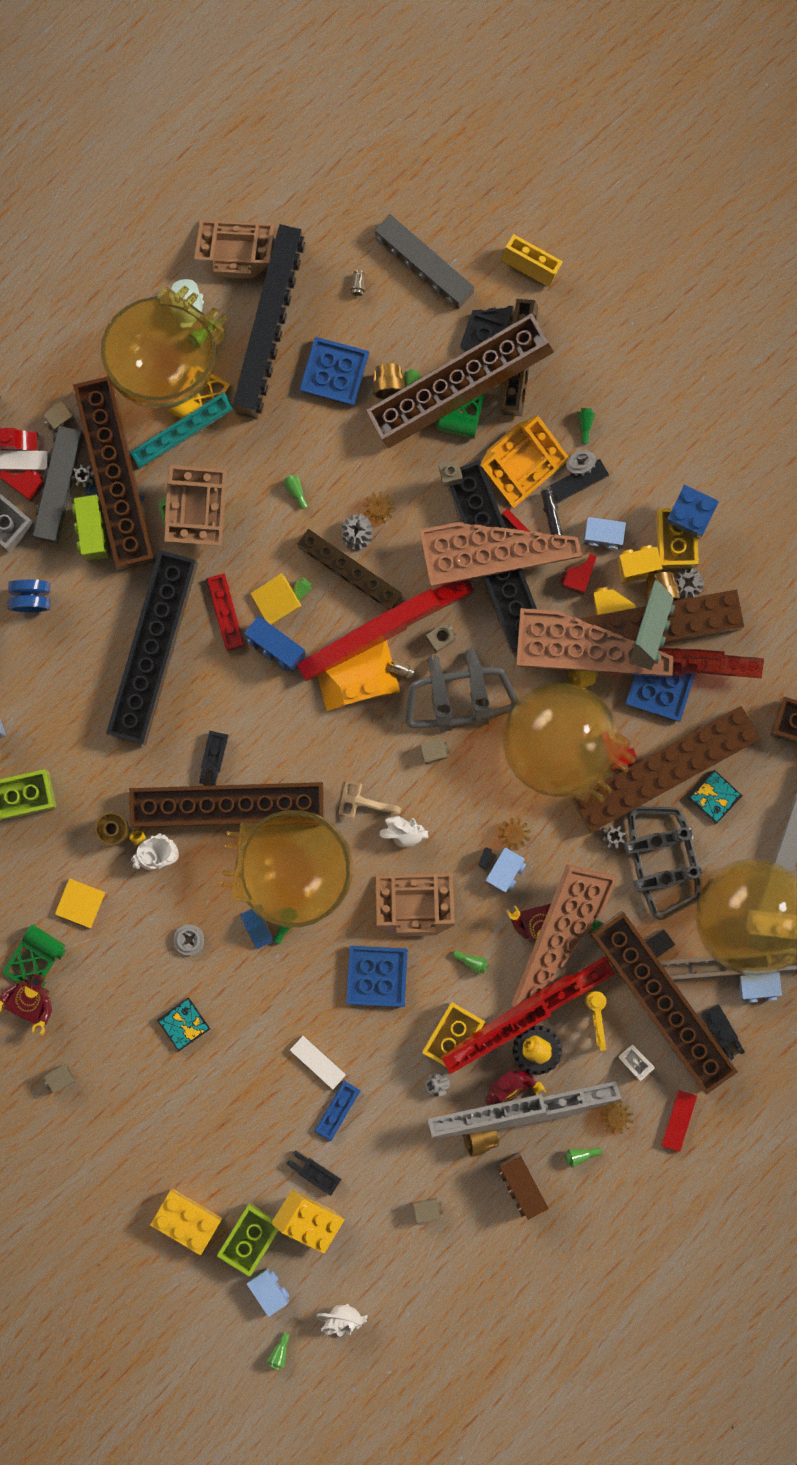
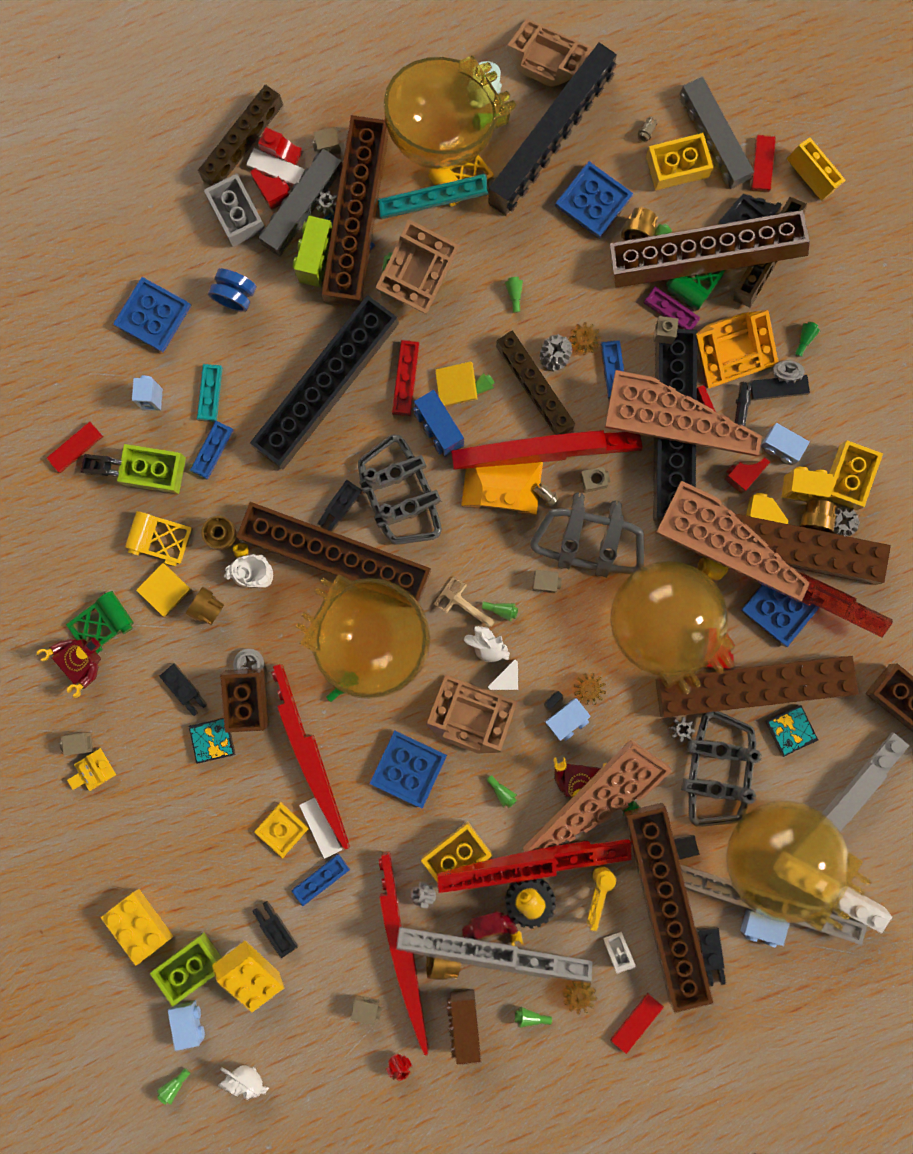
camera: 20 degrees right, 0 degrees up
(38, 858) = (142, 534): none -> yellow piece
(46, 700) = (209, 392): none -> teal tile
(70, 754) = (211, 450): none -> blue tile
(84, 1097) = (92, 771): none -> yellow piece
(126, 903) = (205, 607): none -> pearl gold piece
(135, 987) = (182, 688): none -> black hinge
(199, 973) = (244, 700): none -> reddish brown brick
(243, 716) = (389, 515): none -> dark grey piece
(257, 928) = (314, 680): blue slope -> none
(279, 1000) = (308, 756): none -> red slope
(282, 1080) = (281, 830): none -> yellow tile
(400, 304) = (679, 161): none -> yellow brick
(407, 793) = (505, 610): none -> bright green cone
(413, 519) = (611, 361): none -> blue tile
(435, 855) = (507, 679): none -> white slope
(440, 1147) = (403, 960): none -> red slope
(449, 447) = (668, 307): none -> magenta tile
(478, 1248) = (399, 1067): none -> red gear
(480, 272) = (763, 163): none -> red tile
(652, 627) = (800, 548): sand green slope -> none
(692, 512) = (879, 455): blue brick -> none

